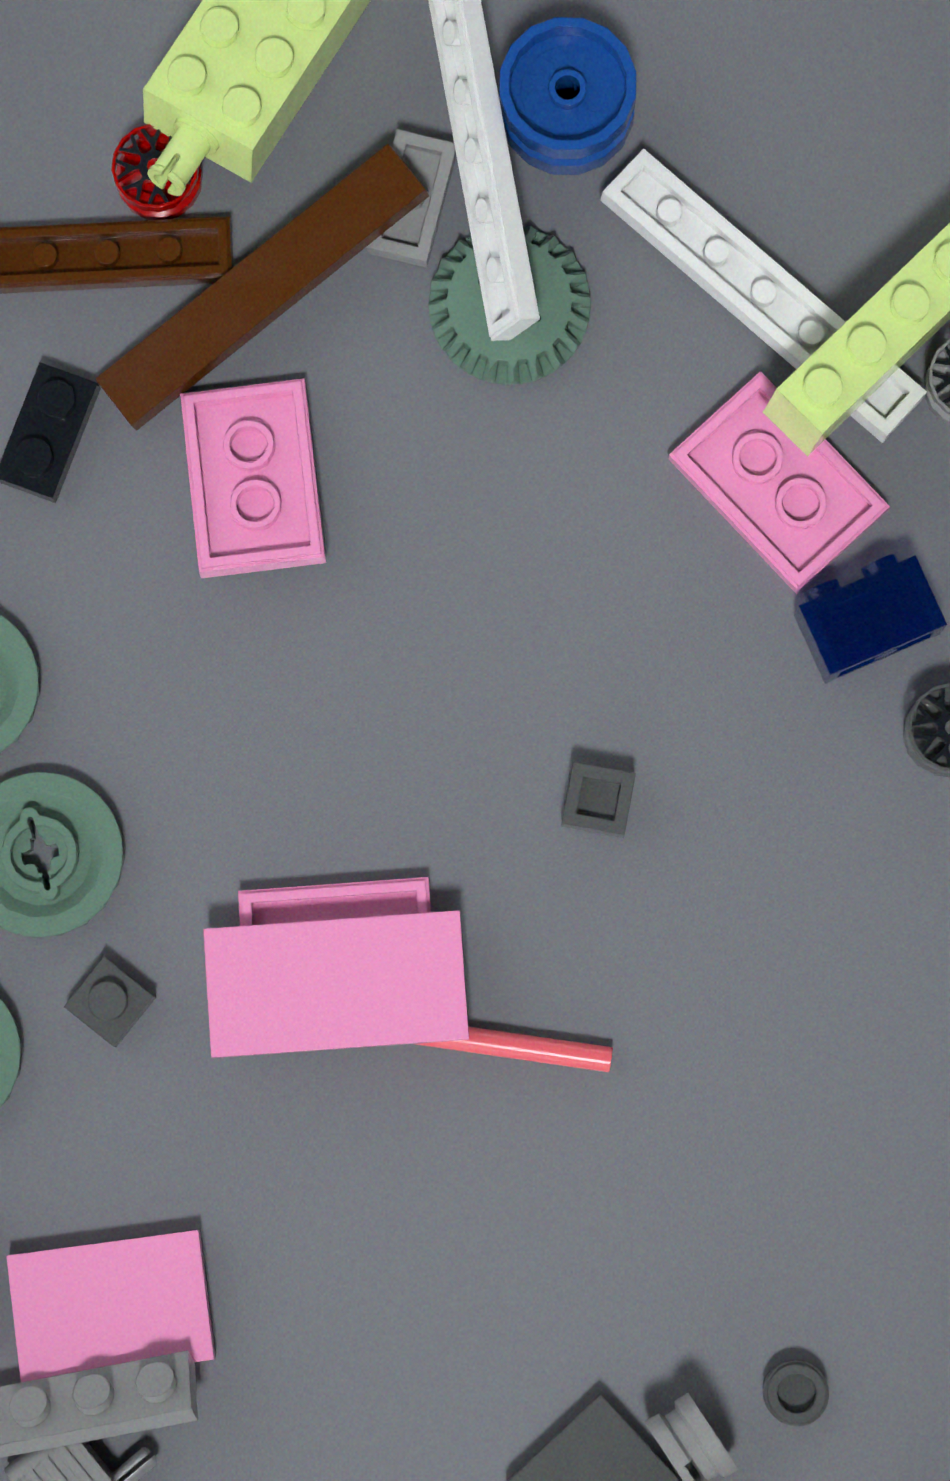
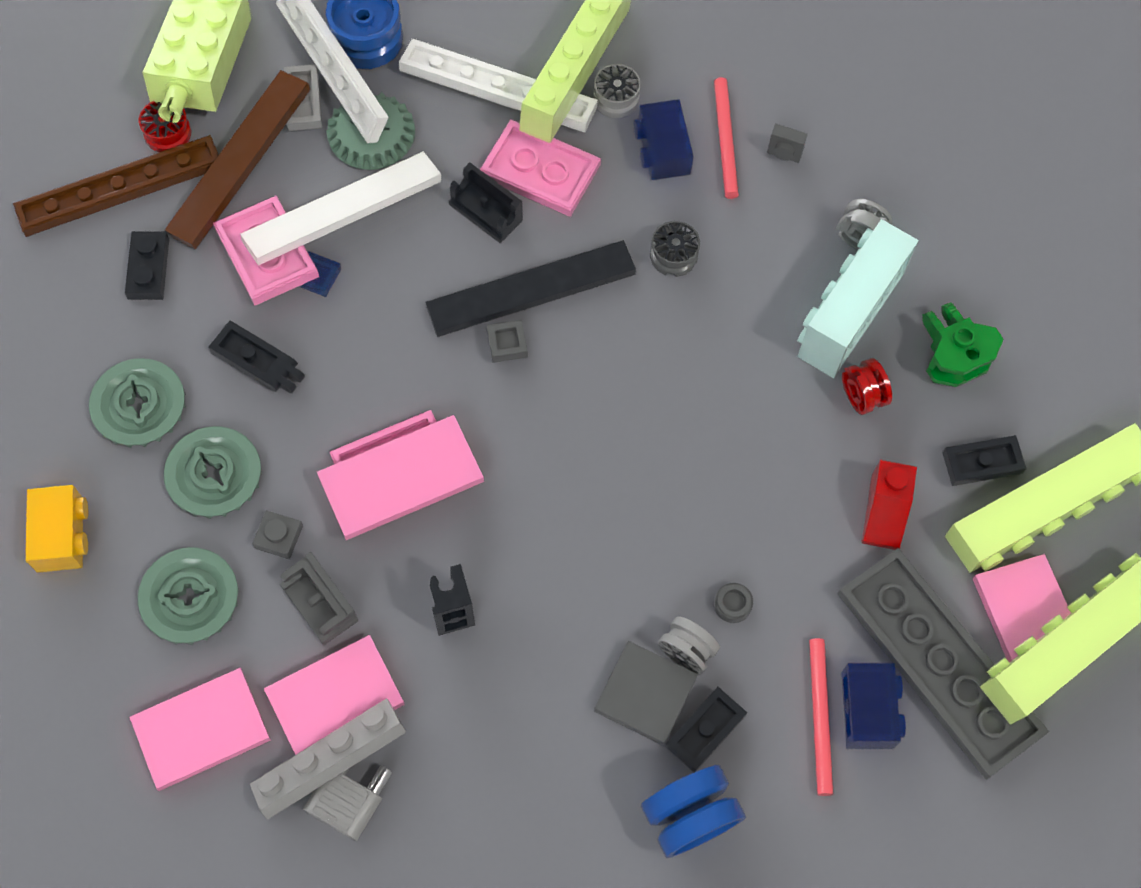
camera: 30 degrees left, 15 degrees down
(138, 1139) = (318, 599): none -> dark grey hinge
(172, 677) = (256, 358): none -> black hinge
(334, 1247) = (452, 607): none -> black hinge
(342, 555) = (328, 272): none -> clear blue tile
(406, 448) = (340, 208): none -> white tile
(532, 1049) = (515, 478): coral bar -> none
(655, 526) = (486, 203): none -> black hinge
(677, 711) = (530, 288): none -> black tile
(868, 617) = (612, 209): clear blue brick -> none

